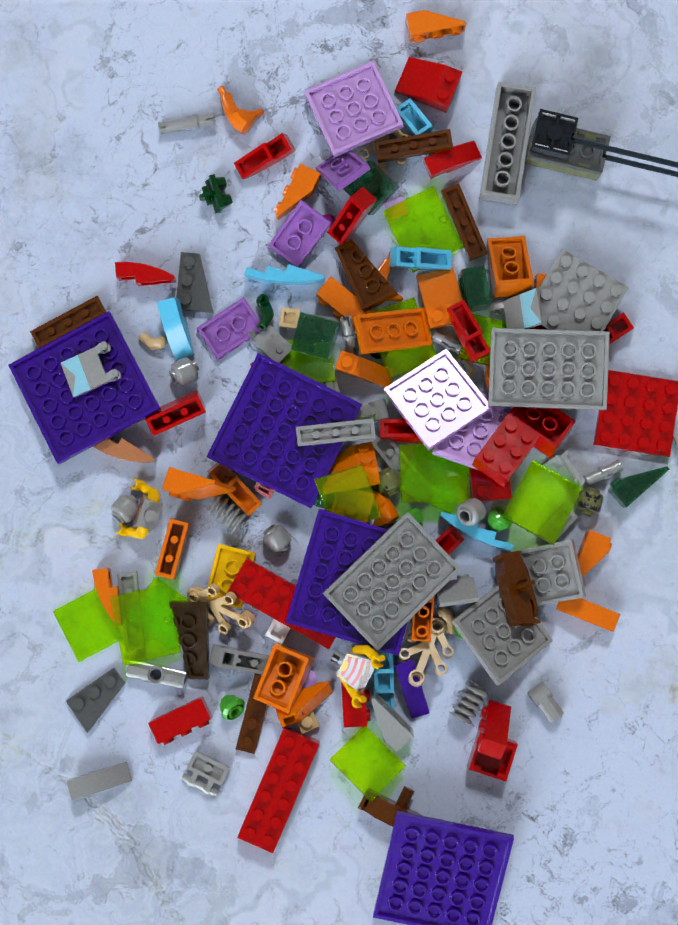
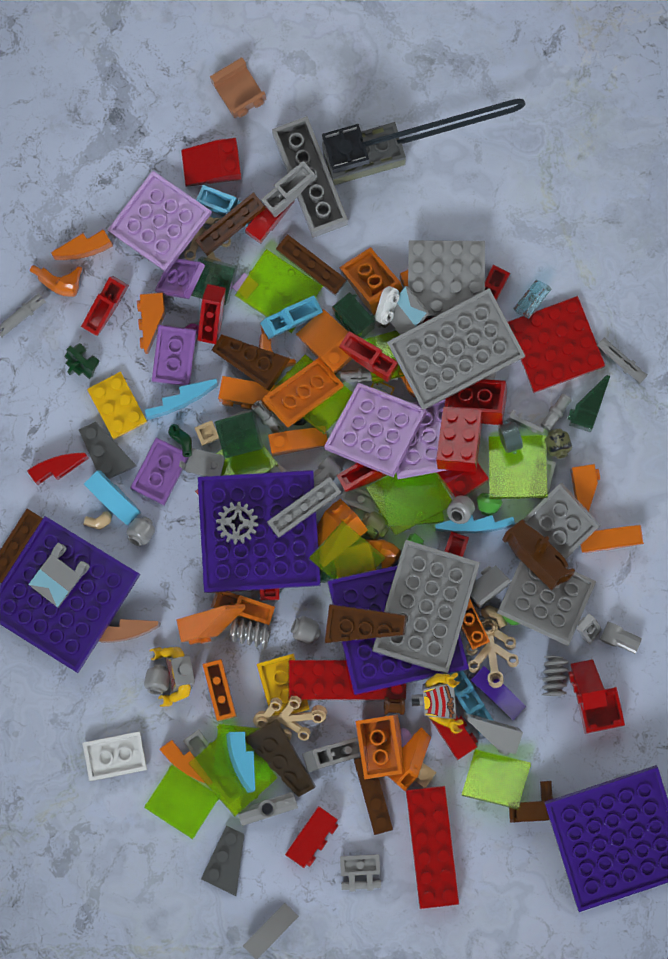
camera: 25 degrees left, 5 degrees down
(51, 553) = (114, 756): none -> white plate
(156, 620) = (241, 759): none -> medium azure slope
(176, 413) = (155, 570): red brick -> none
(226, 250) = (117, 405): none -> yellow plate
(231, 707) = (350, 799): bright green cone -> none
(261, 408) = (224, 521): none -> light grey gear
(274, 94) = (82, 247): none -> orange slope
(277, 631) = (352, 710): white plate -> none
(315, 650) = (394, 706): none -> reddish brown bush
(322, 562) = (354, 623): none -> reddish brown wing
(427, 24) = (182, 113): orange slope -> none
(482, 143) = (288, 189): none -> light grey slope
(489, 30) = (238, 88): none -> nougat panel
(510, 295) = (387, 305): none -> white plate
(523, 678) = (588, 628): none -> light grey plate
(551, 472) = (510, 437): none -> clear light blue piece
(640, 361) = (532, 299): none -> clear light blue plate

